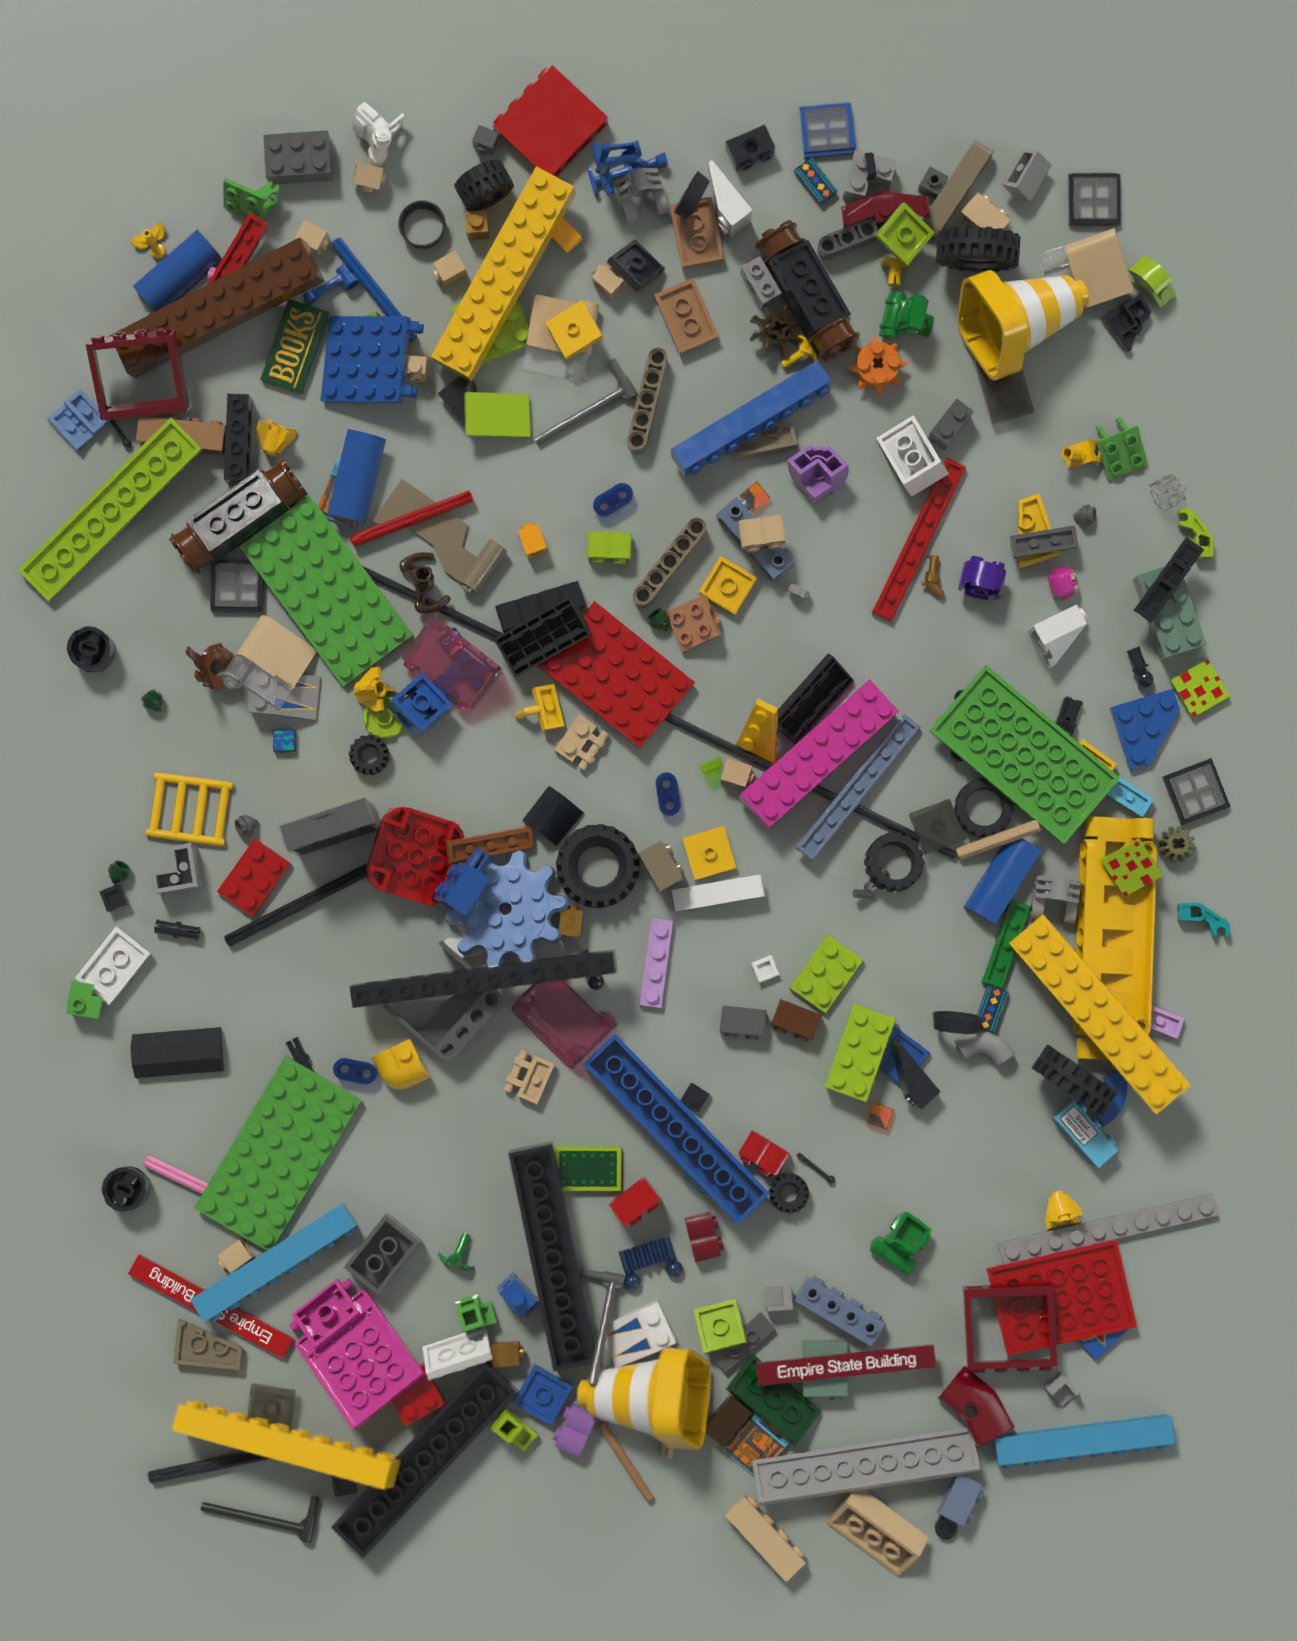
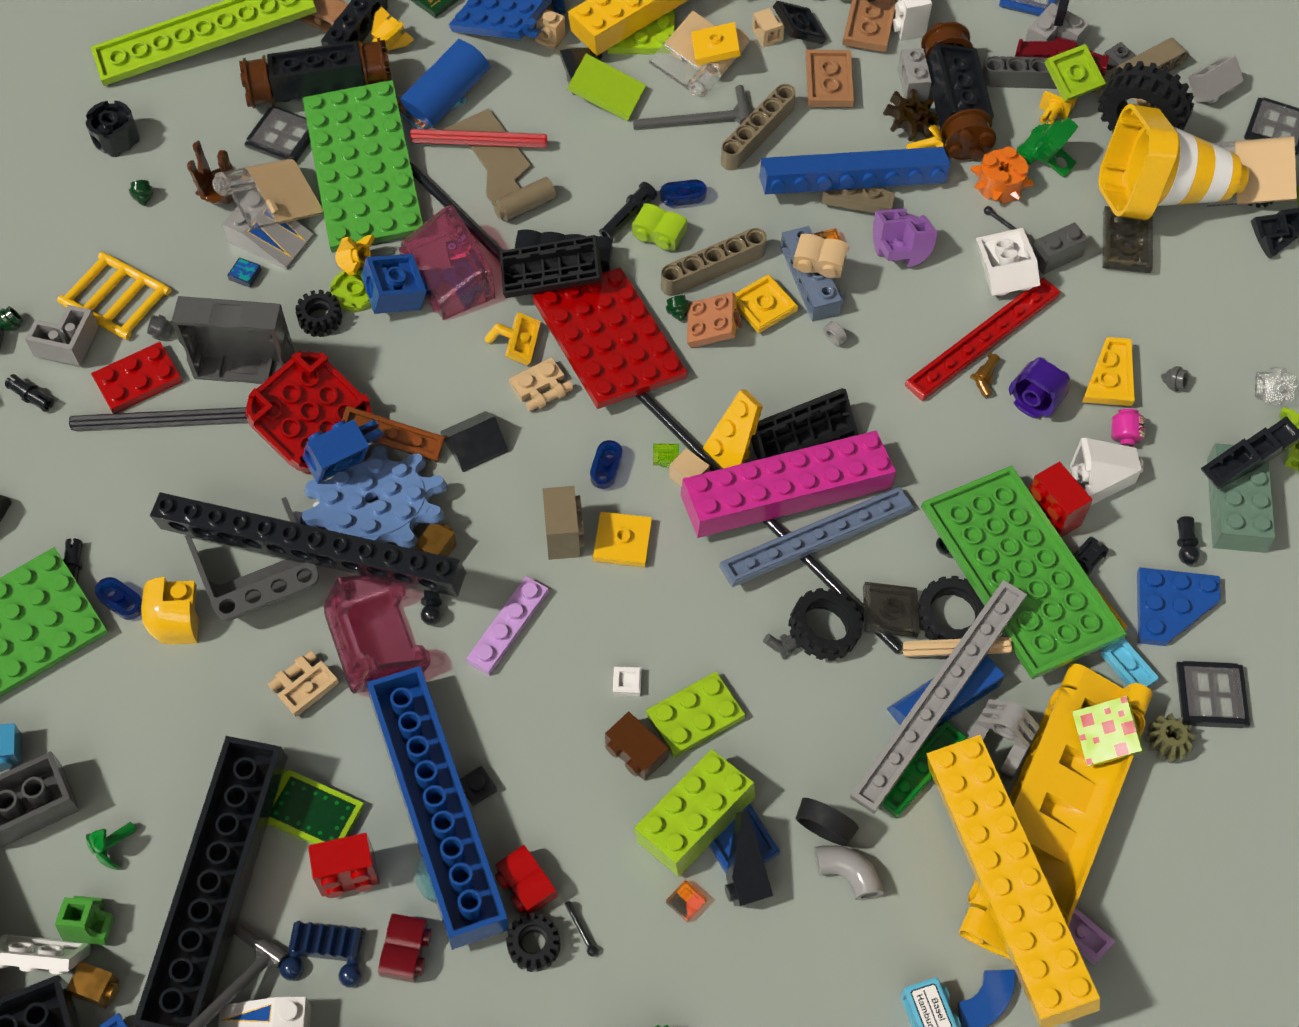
camera: 20 degrees right, 25 degrees down
(423, 582) = (460, 188): dark brown piece -> none
(518, 1295) = (145, 916): blue torso -> none
(532, 540) = (585, 196): light orange brick -> none
(577, 531) = (633, 205): none -> black pin
(589, 837) = (491, 471): black tyre -> none
(718, 893) = (613, 578): white slope -> none
(742, 1021) = (573, 722): dark grey brick -> none
(815, 181) = (1002, 24): dark blue tile -> none
(876, 403) = (989, 211): none -> black hinge
(991, 1007) = (875, 831): dark blue tile -> none
(1002, 890) = (938, 697): none -> light grey plate
(1032, 680) = (1061, 498): none -> red brick
(1044, 541) = (1121, 378): dark grey plate -> none
(1074, 1080) = (948, 942): black tyre -> none
(1080, 453) = (1190, 320): yellow bracket -> none
(1121, 451) = (1235, 334): bright green plate -> none
(1199, 688) = (1251, 589): lime tile -> none
(1214, 920) = (1180, 831): teal piece -> none

